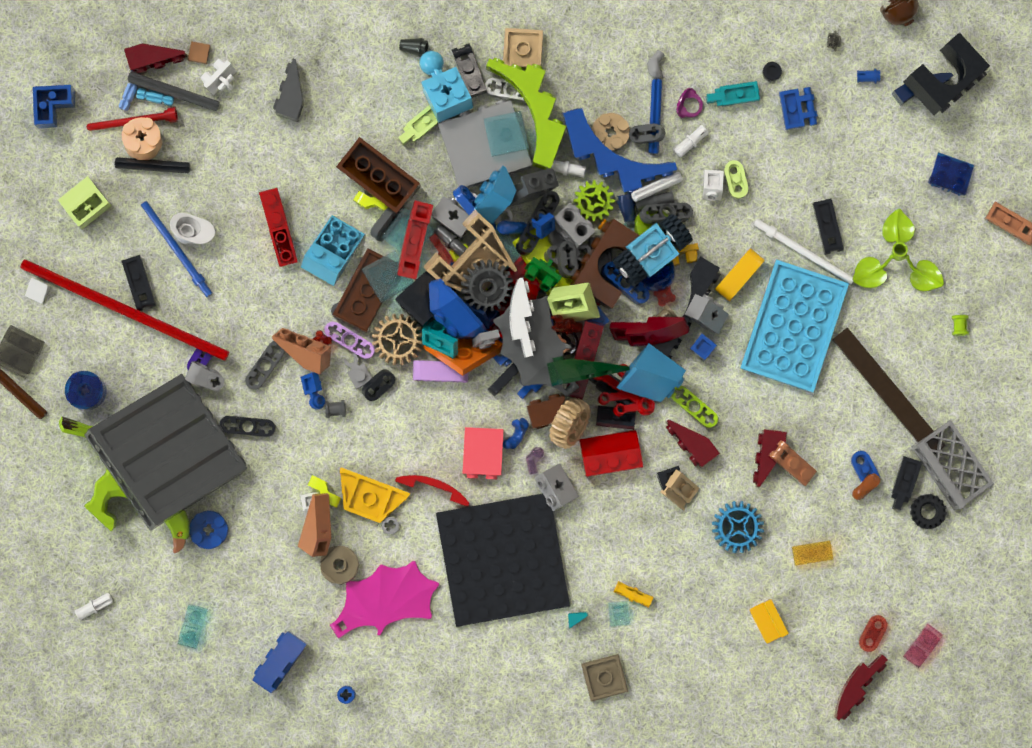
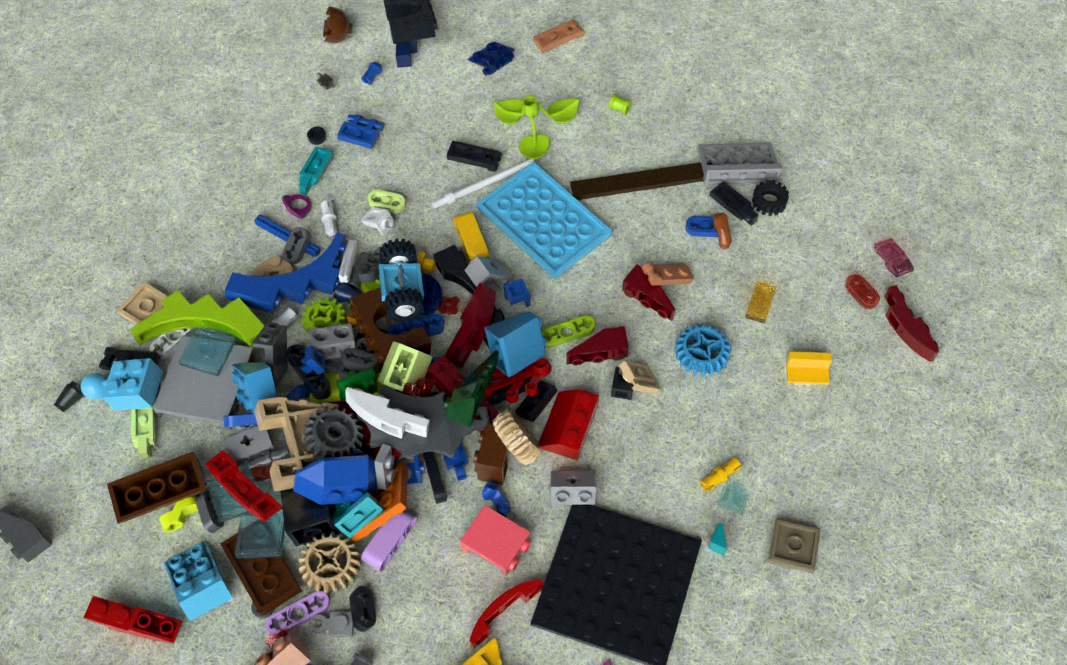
camera: 60 degrees left, 25 degrees down
(532, 458) = (530, 498): clear purple arm -> none
(653, 64) = (242, 214): light grey arm -> none

